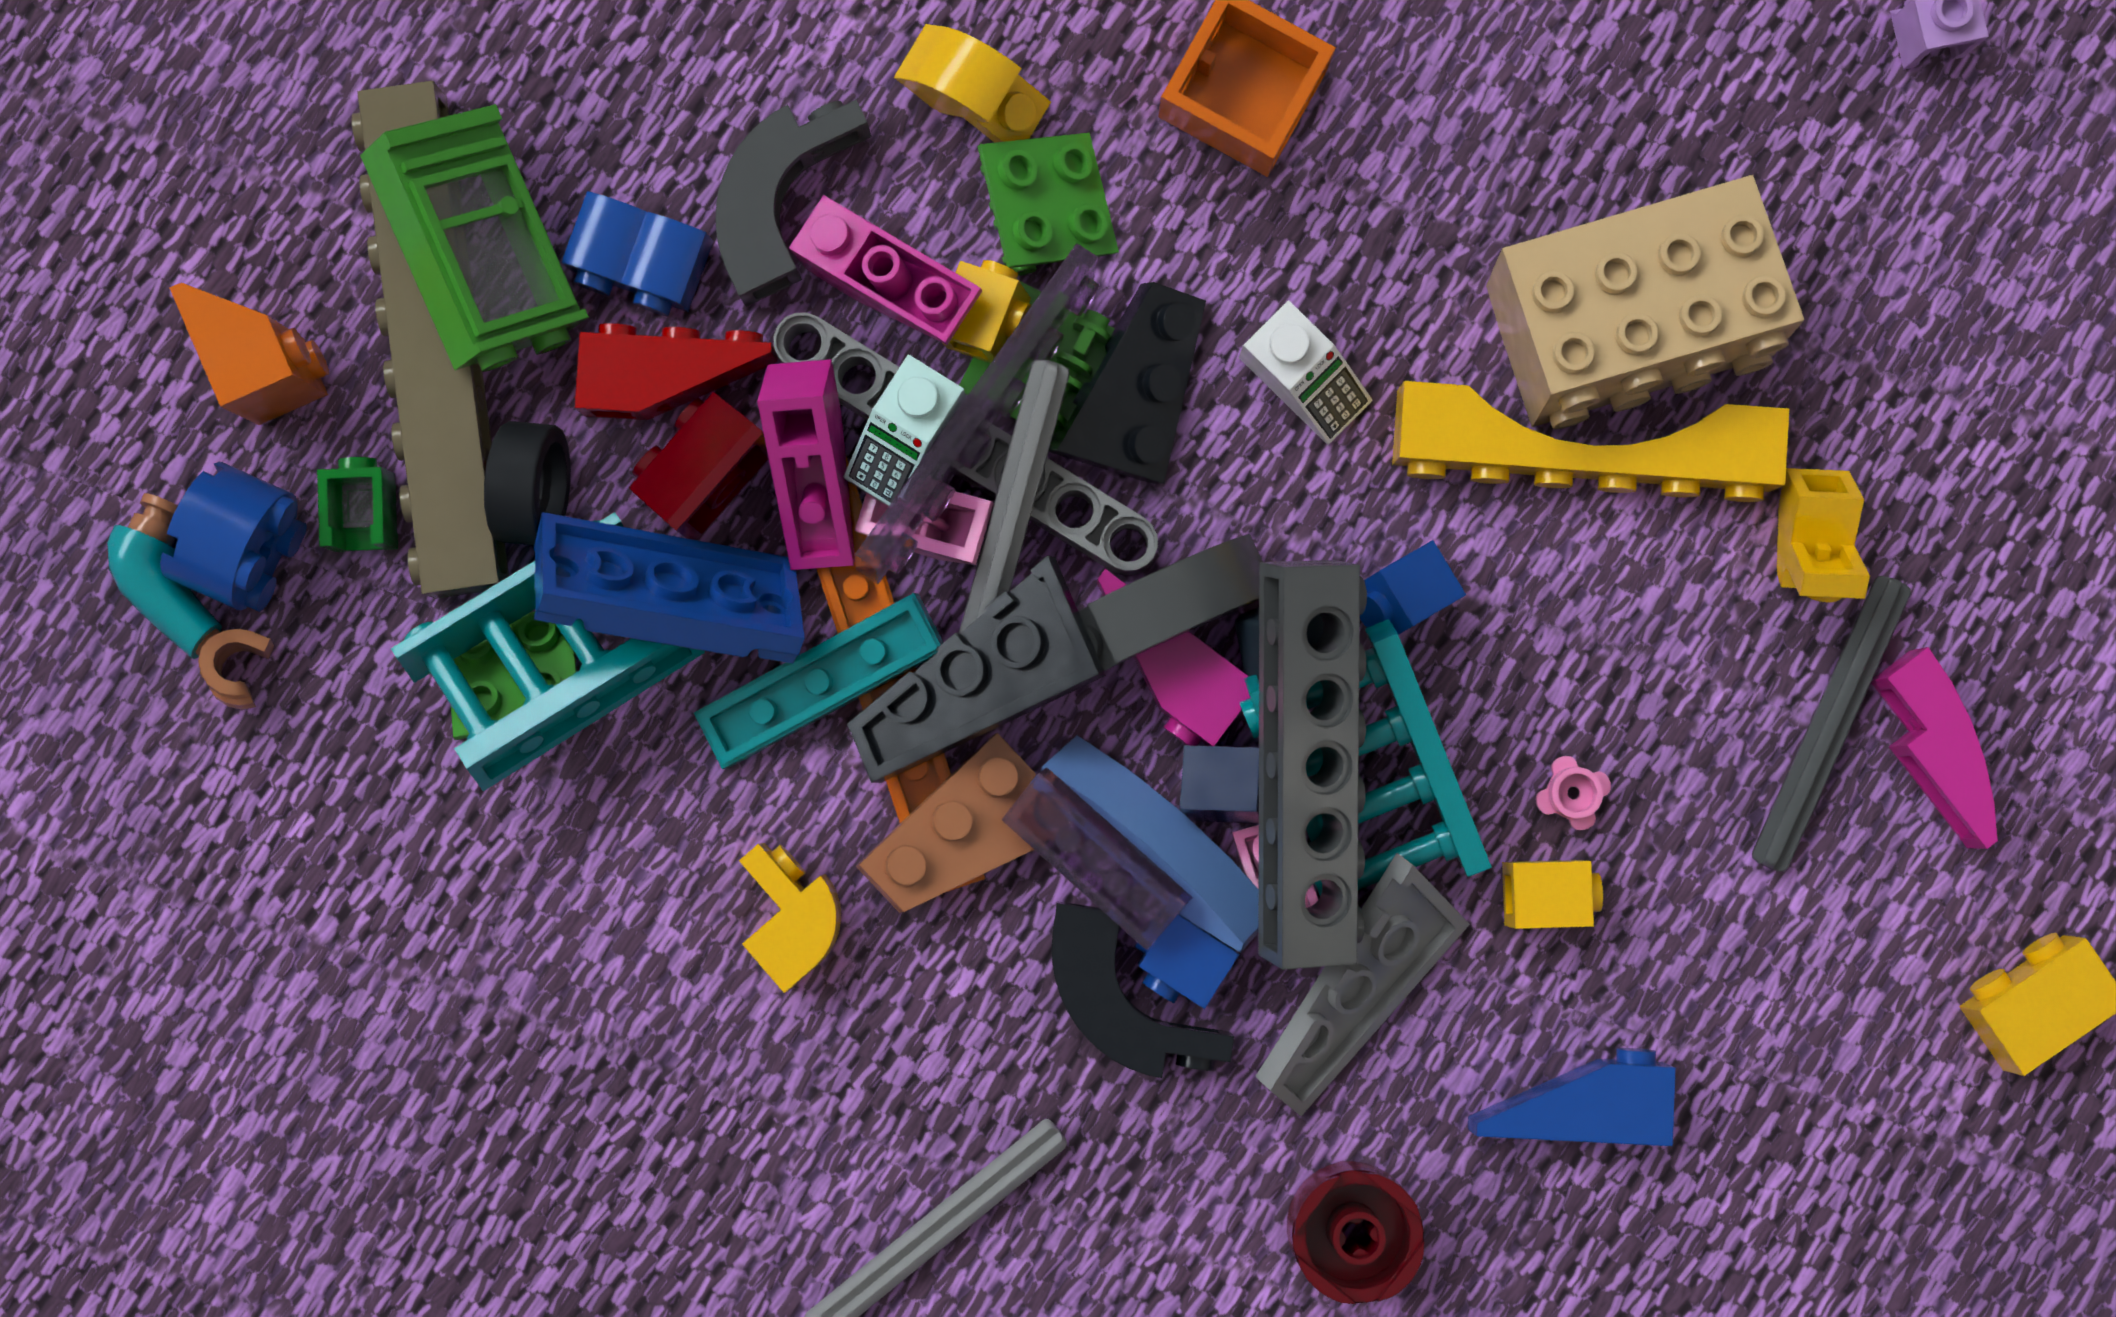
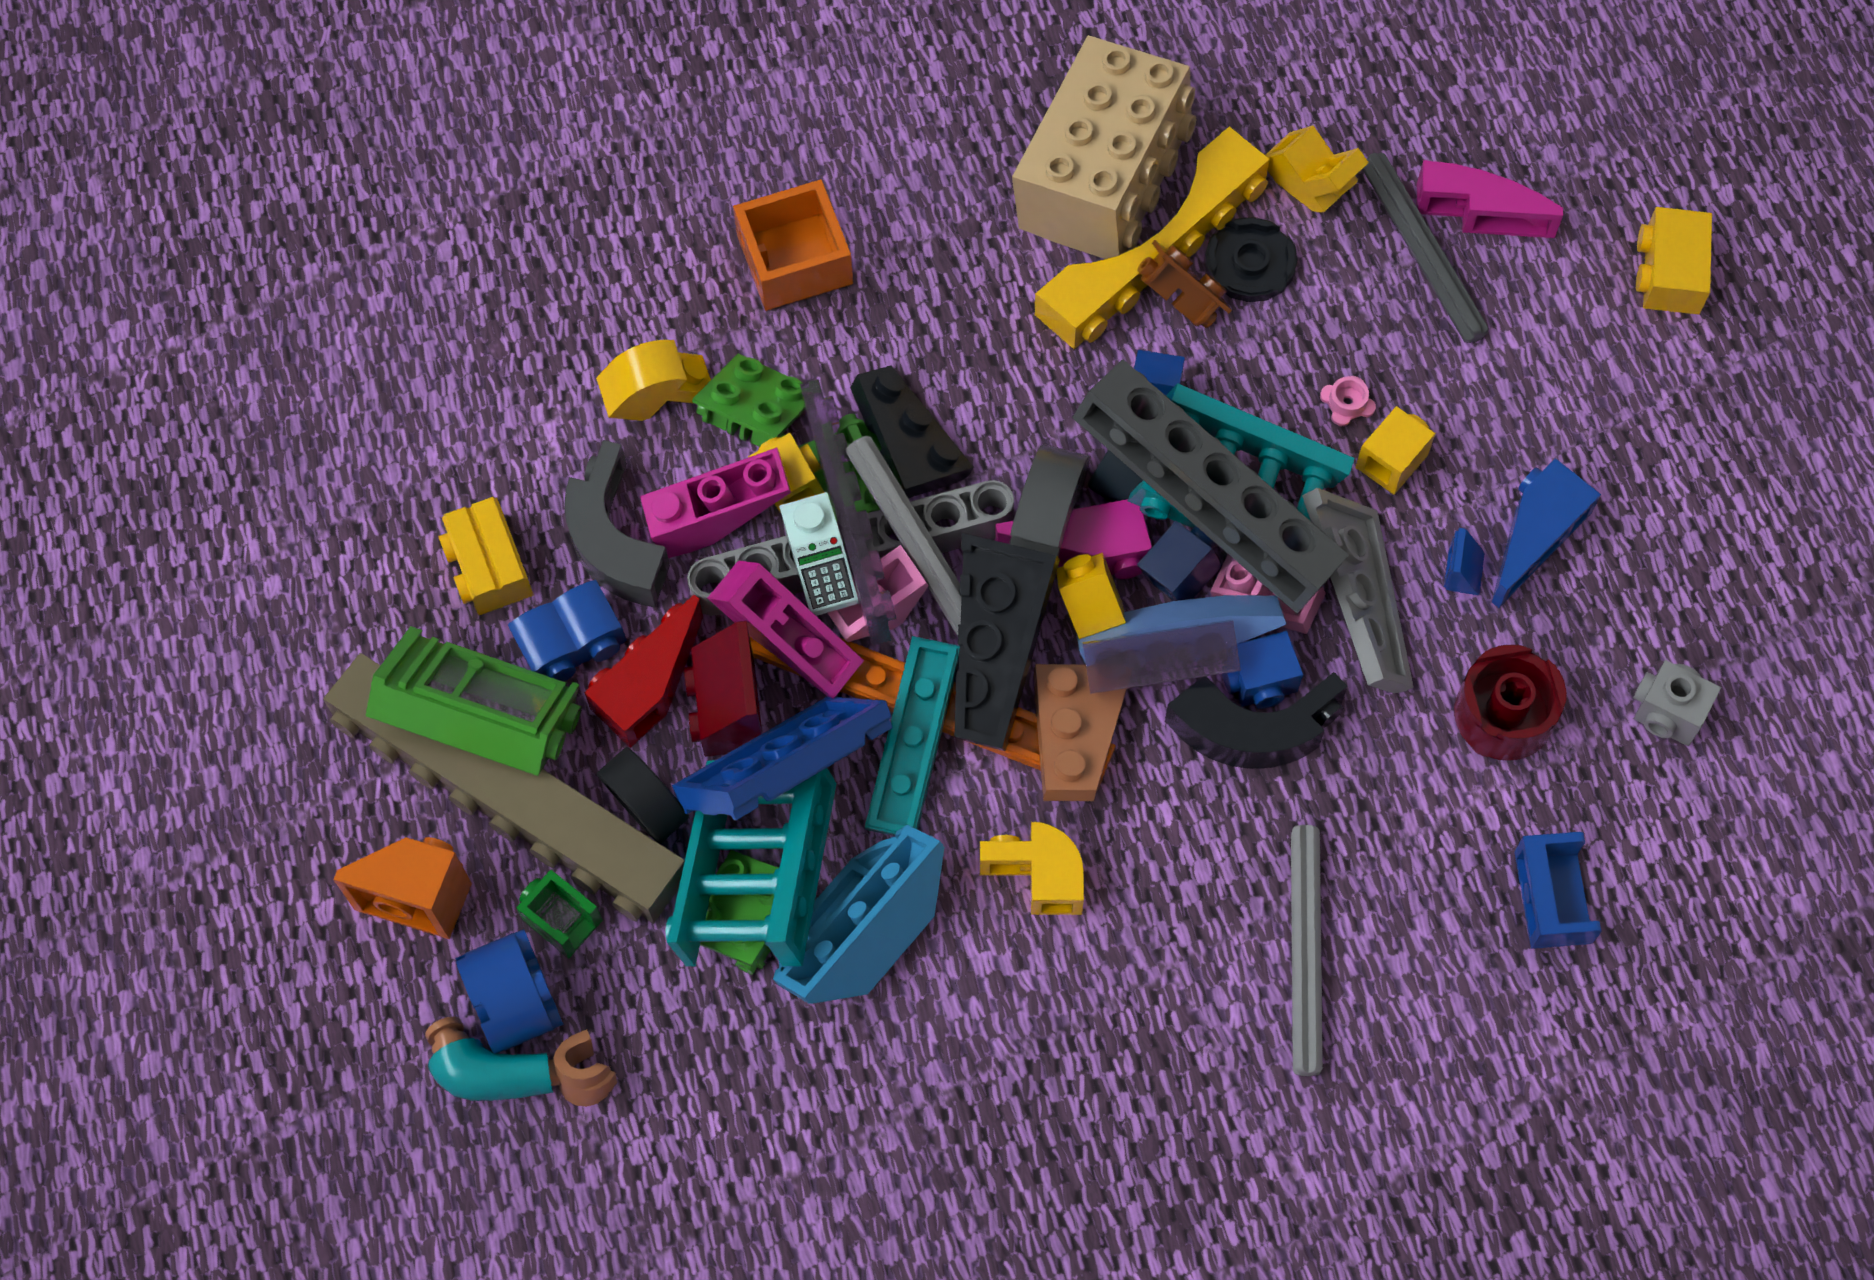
camera: 50 degrees left, 20 degrees down
(591, 800) = (867, 918): none -> dark azure wedge
(645, 98) = (486, 556): none -> yellow brick
(1111, 727) = (1090, 594): none -> yellow brick
(1306, 372) = (980, 344): white slope -> none
(1481, 1061) = (1464, 564): none -> blue slope
(1557, 497) = (1198, 296): none -> dark orange hinge
(1634, 558) = (1244, 270): none -> black tile

